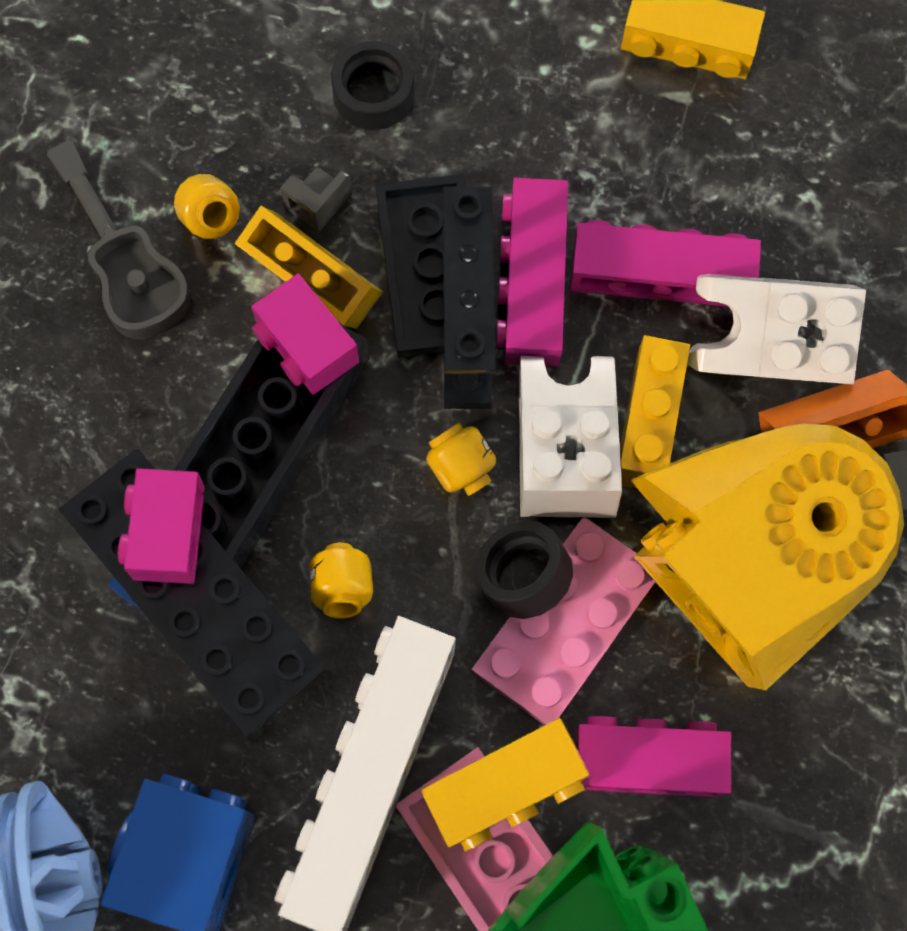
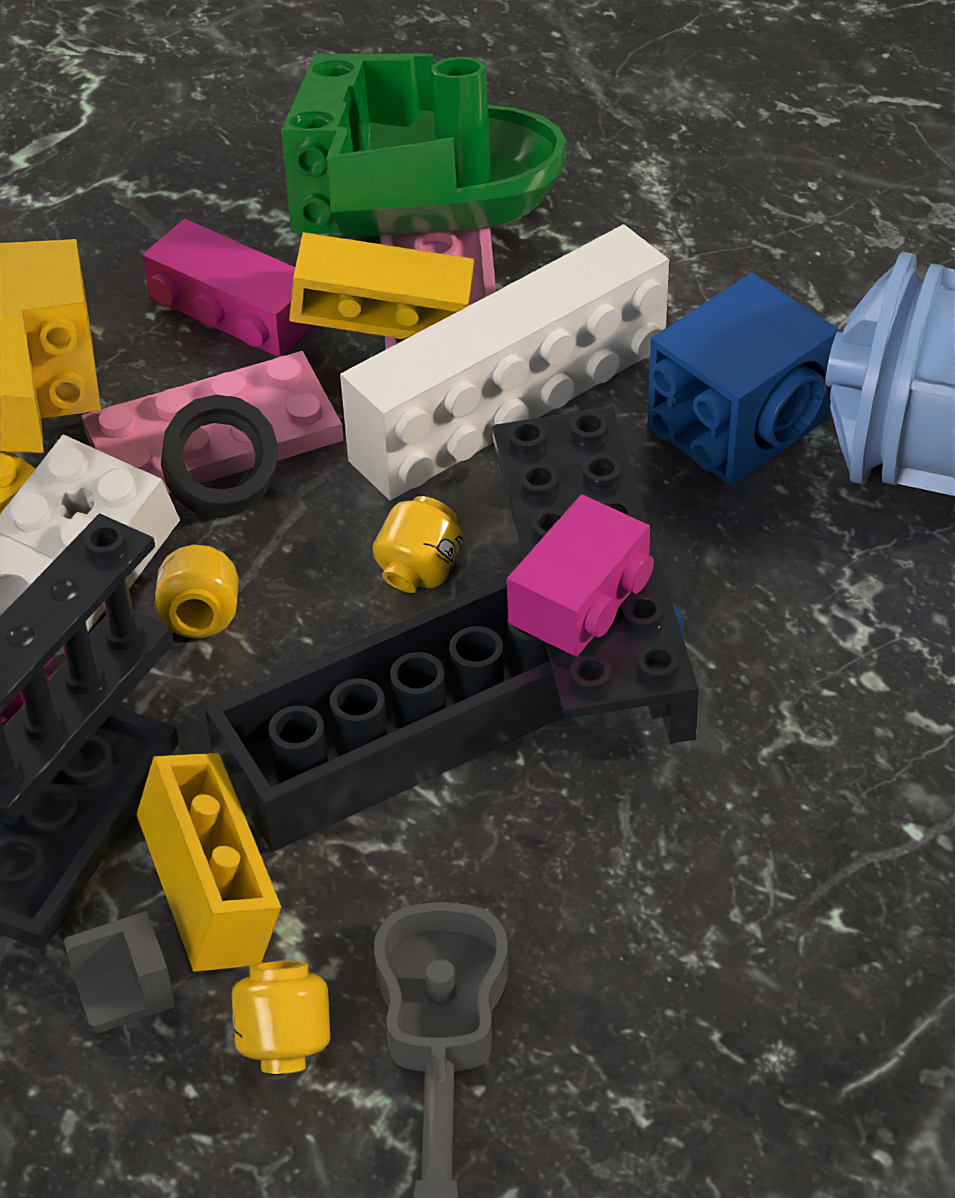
camera: 145 degrees left, 25 degrees down
(304, 335) = (276, 715): dark pink brick -> none

